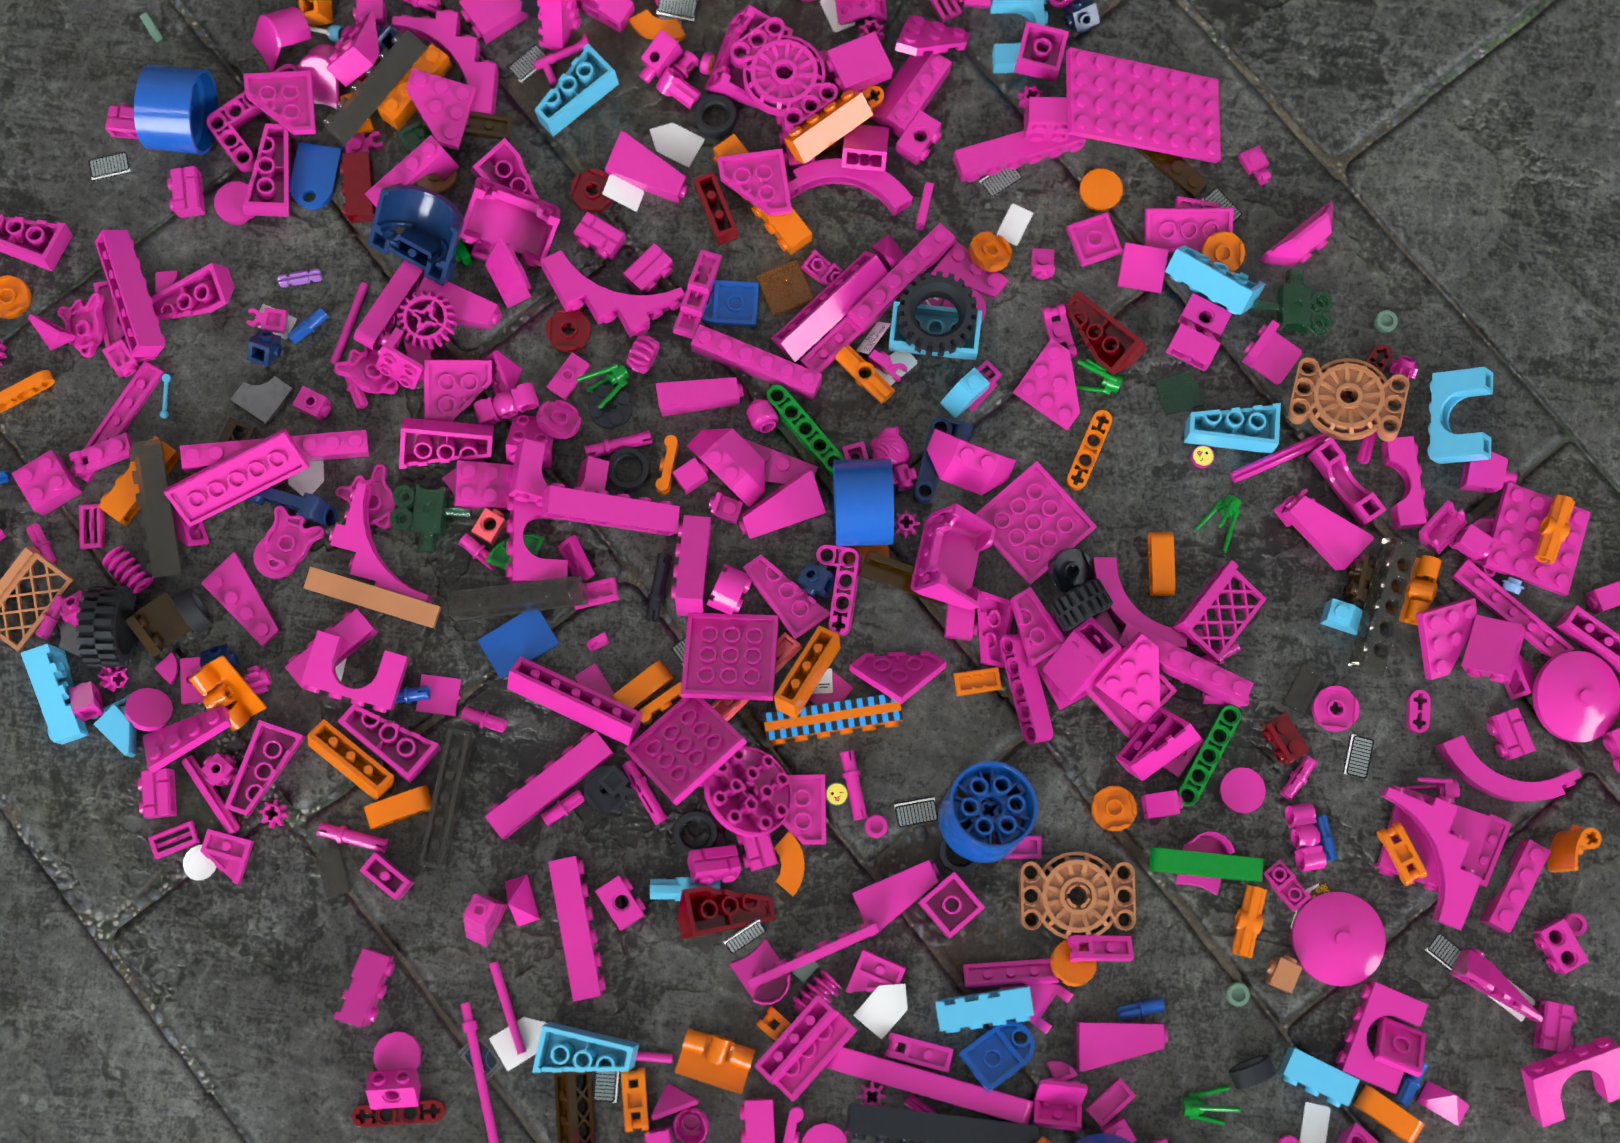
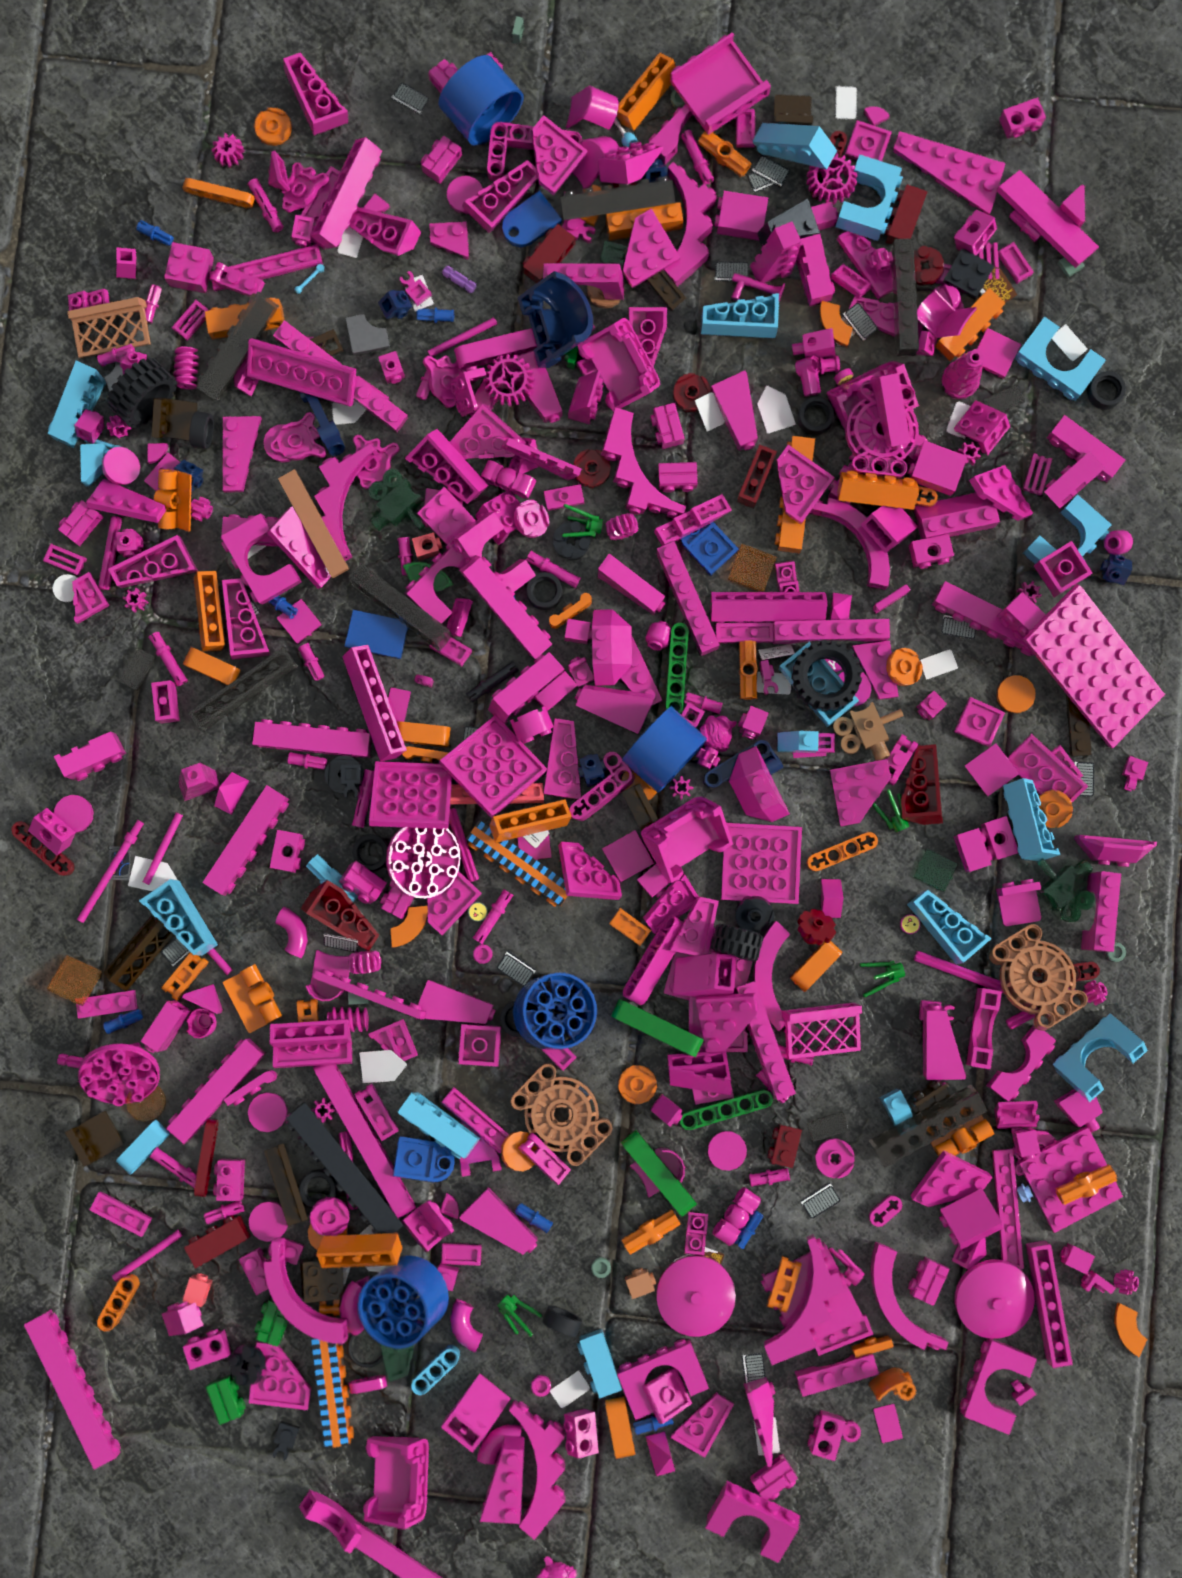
camera: 45 degrees right, 5 degrees up
(88, 375) = (262, 200): none -> dark pink pin
(174, 333) = (350, 243): none -> white sticker
(258, 249) = (451, 237): none -> dark pink wing
(375, 628) = (295, 542): none -> wing
(526, 358) = (554, 465): none -> dark pink wing
(696, 964) = (296, 931): none -> dark pink cylinder
(720, 543) = (556, 691): none -> dark pink slope
(776, 48) = (891, 409): none -> dark pink slope
(780, 756) = (463, 846): none -> dark pink axle
(782, 931) = (364, 962): none -> dark pink gear
(854, 436) = (703, 702): none -> dark pink axle
(912, 412) = (752, 723): none -> dark pink brick
(916, 624) = (628, 856): none -> dark pink tile
(1013, 329) = (868, 729): none -> medium nougat piece
(1084, 743) = (657, 1028): none -> green beam
(1118, 496) = (831, 897): none -> dark pink slope
(1131, 531) = (816, 927): none -> dark red plant
(1364, 311) = (1102, 933): none -> dark pink arch
(1453, 1041) = (704, 1425): none -> dark pink wing
(1520, 834) = (872, 1345): none -> orange plate
(1596, 887) = (888, 1423): none -> dark pink sticker

